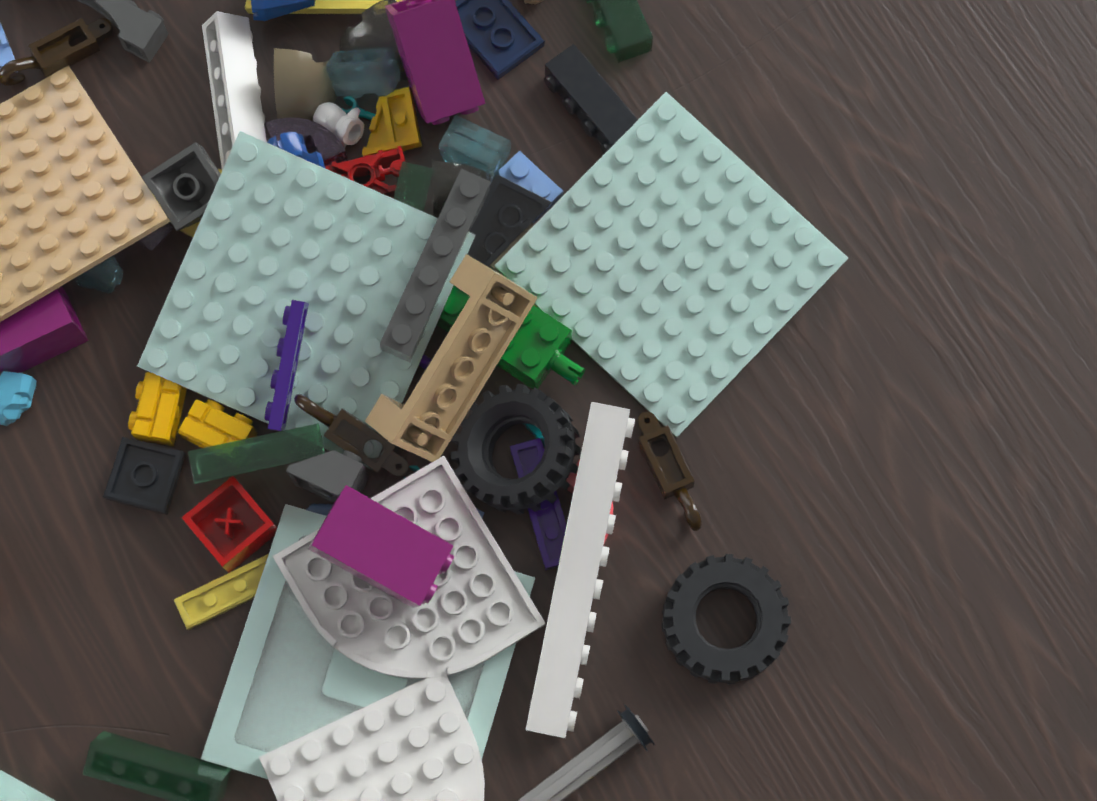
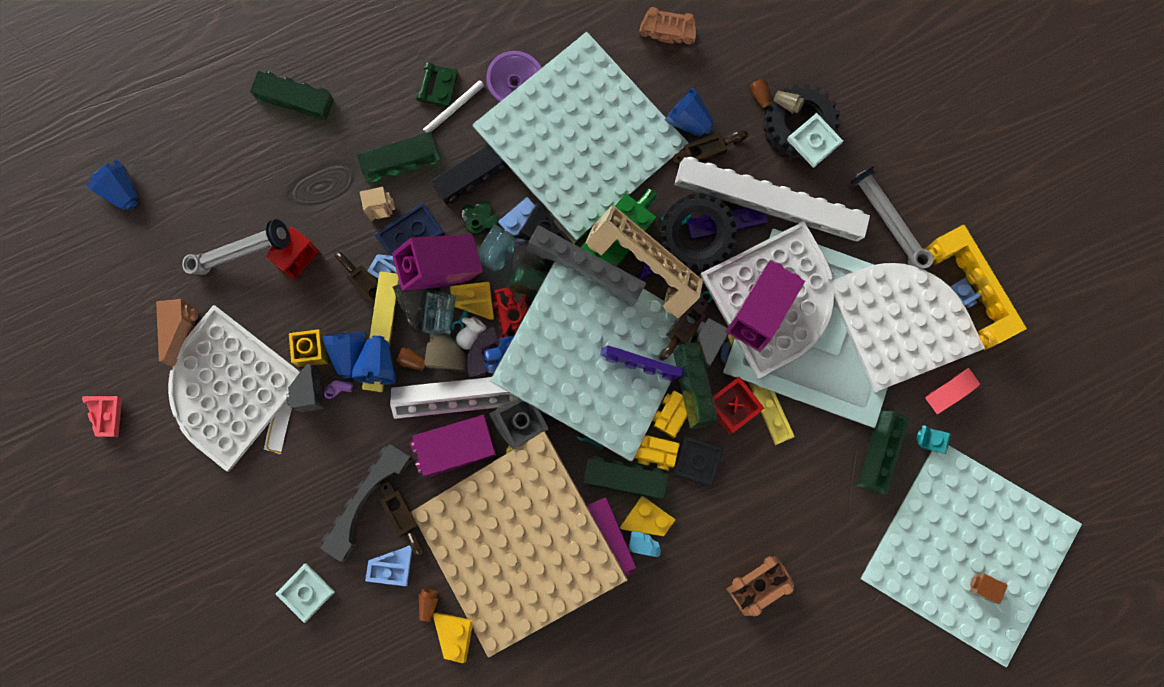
camera: 85 degrees left, 5 degrees up
(55, 404) = (647, 519): none -> yellow wing
(114, 364) = (625, 478): none -> clear green brick
(154, 103) = (453, 446): none -> magenta brick
(297, 37) = (410, 359): none -> dark orange cone
(528, 126) = (479, 215): none -> dark green plate
(685, 632) = (815, 140): none -> light aqua plate
(703, 74) = (453, 107): none -> white bar
(720, 433) = (691, 115): none -> blue cone
(734, 56) = (443, 86): none -> dark green plate
(751, 586) = (789, 101): none -> dark tan cone
(767, 139) = (509, 68): none -> medium lavender dish
(775, 551) = (761, 92): none -> dark orange cone
(871, 388) = (668, 27): none -> nougat piece

